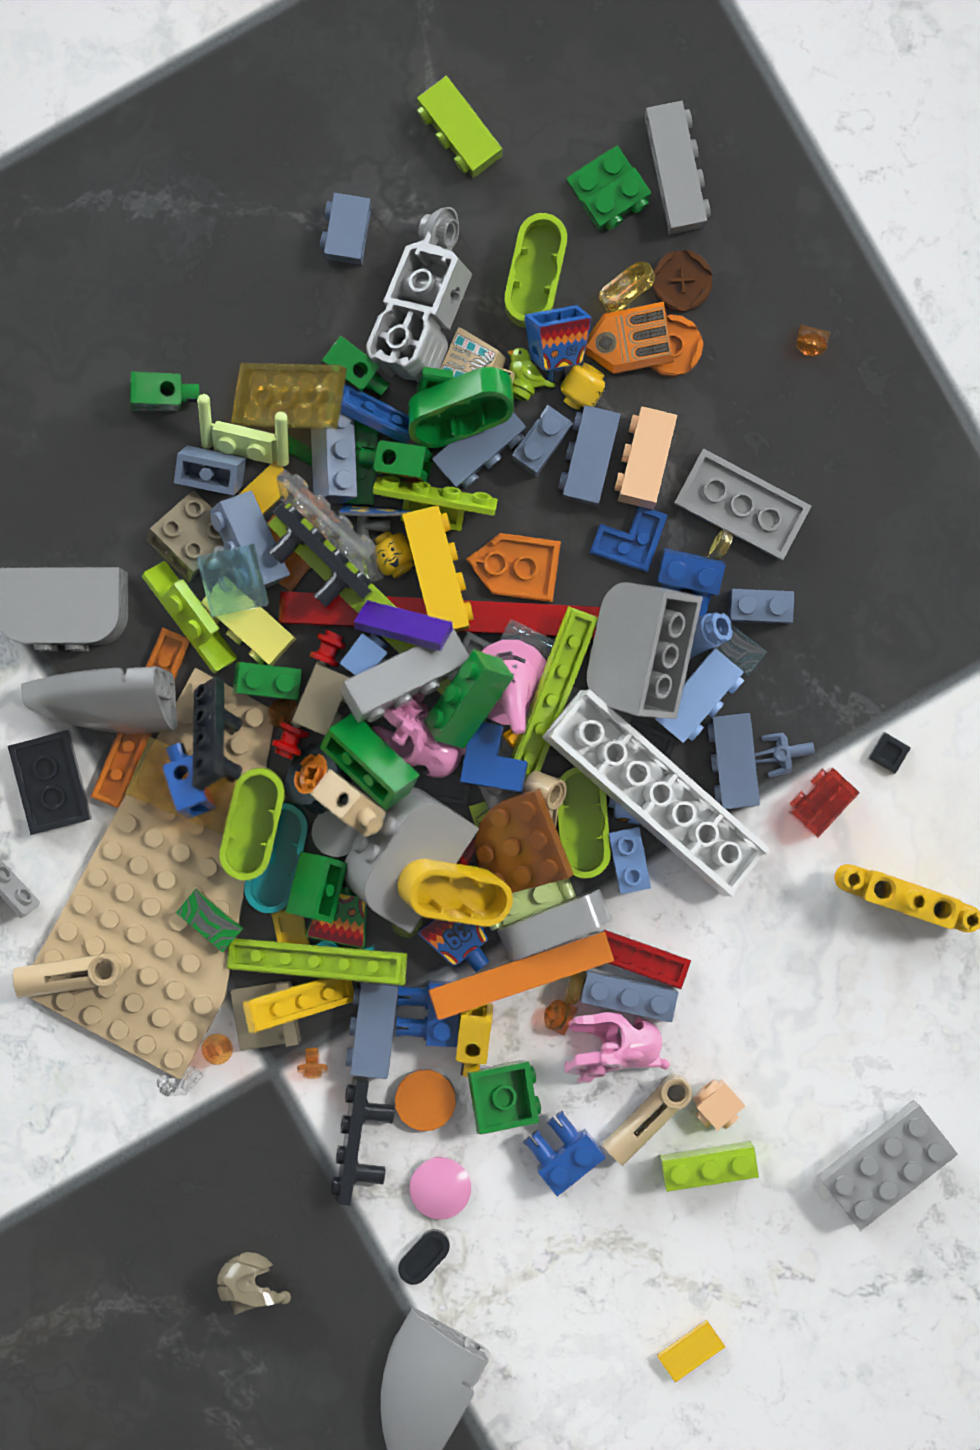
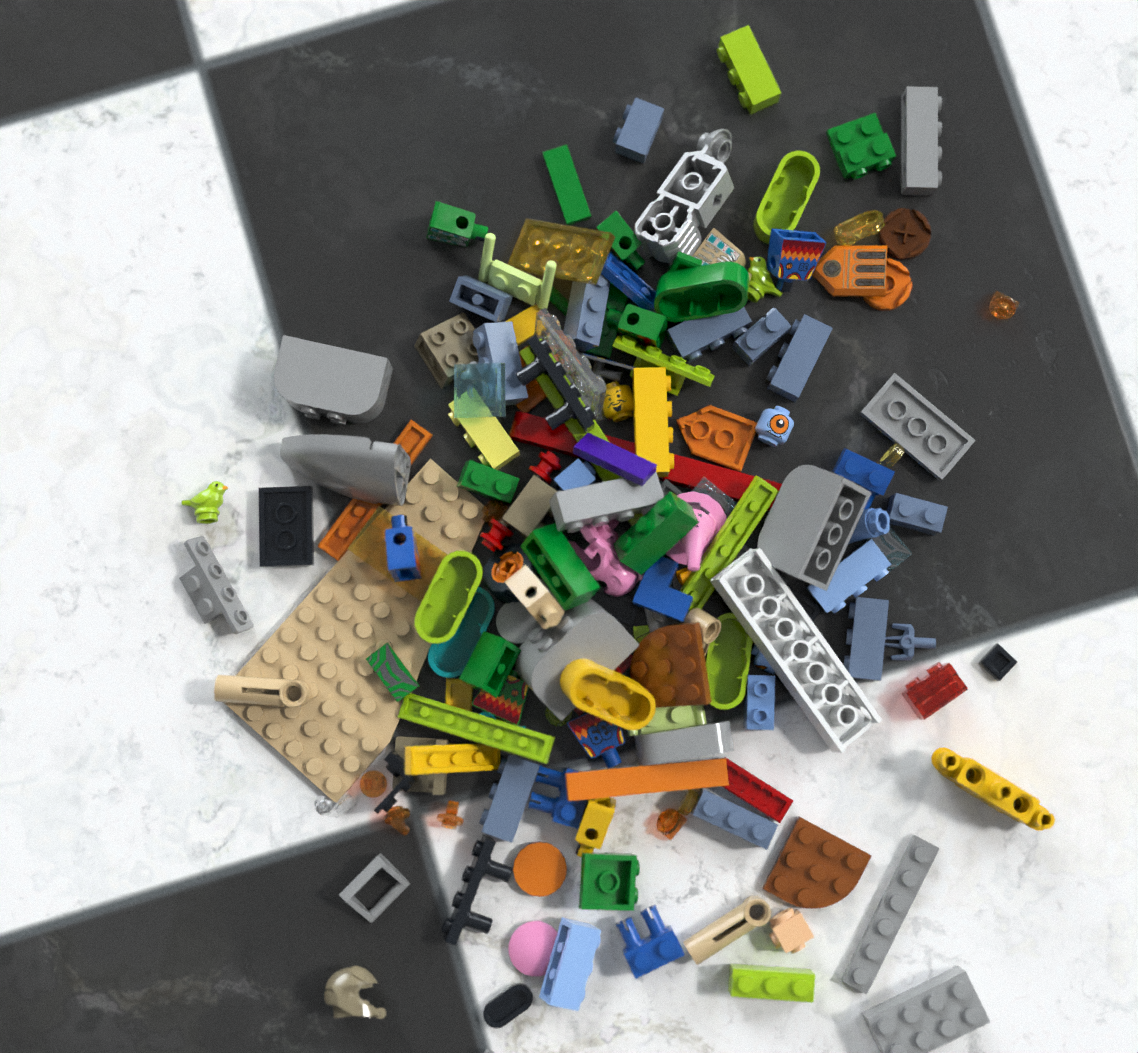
camera: 10 degrees right, 5 degrees down
(189, 616) = (436, 414): lime bracket -> none
(209, 724) = (429, 514): black plate -> none
(238, 1025) = (395, 766): none -> black bracket
(244, 1133) = (349, 892): none -> light grey tile
(252, 1080) = (396, 817): none -> clear orange plate
(278, 312) = (566, 185): none -> green tile
(482, 1196) = (570, 964): none -> light blue brick
(579, 541) = (774, 426): none -> light blue head
(583, 386) = (805, 299): yellow head -> none
(631, 548) = (819, 442): blue tile -> none
(636, 1048) = (732, 866): bright pink helmet -> none
(645, 457) = (845, 369): light nougat brick -> none
(732, 1028) = (815, 867): none -> dark orange plate
(826, 1060) = (890, 914): none -> light grey plate

